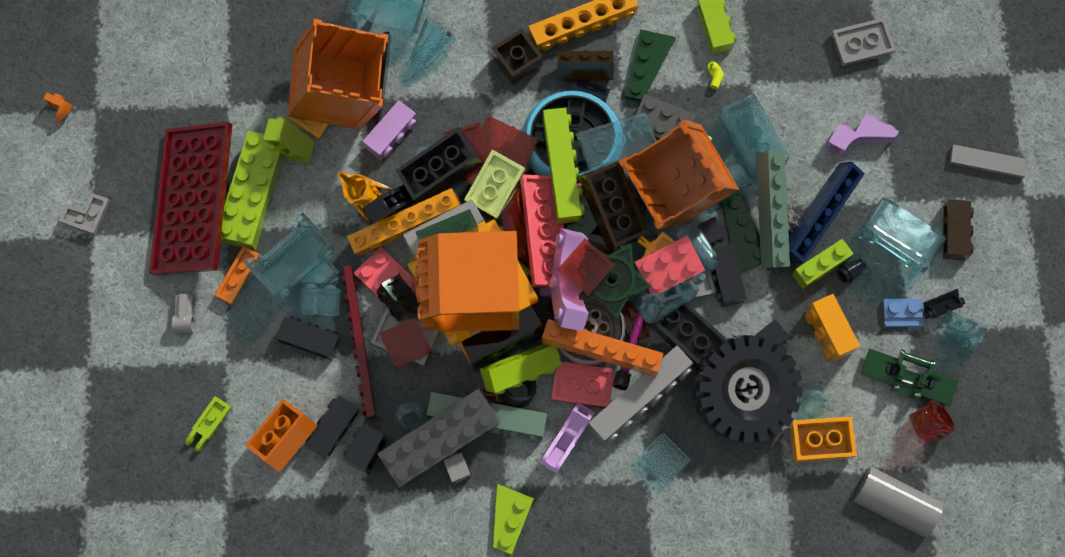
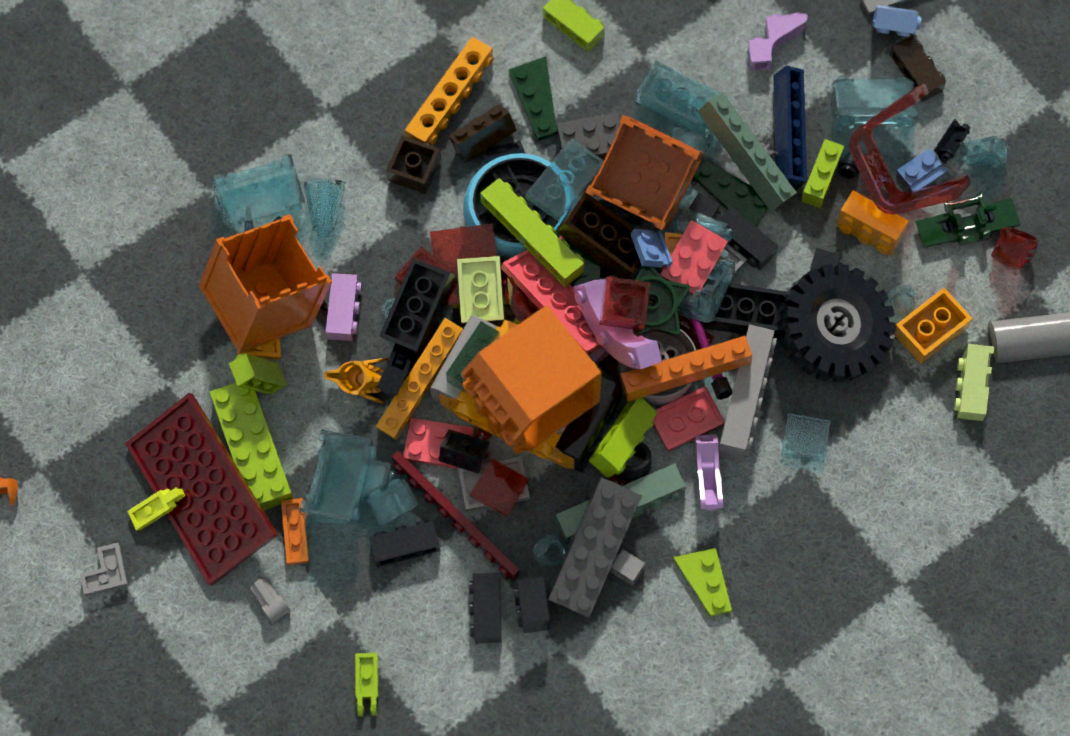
camera: 30 degrees left, 5 degrees down
(151, 190) = (154, 507): none -> neon yellow hinge
(281, 435) = (446, 644): orange brick -> none
(641, 237) = (651, 248): none -> medium blue plate
(716, 73) = (606, 66): neon yellow arm -> none
(822, 506) = (973, 382): none -> yellowish green wedge
(865, 293) = (875, 172): none -> clear red windscreen
(966, 181) = (896, 19): none -> light blue brick

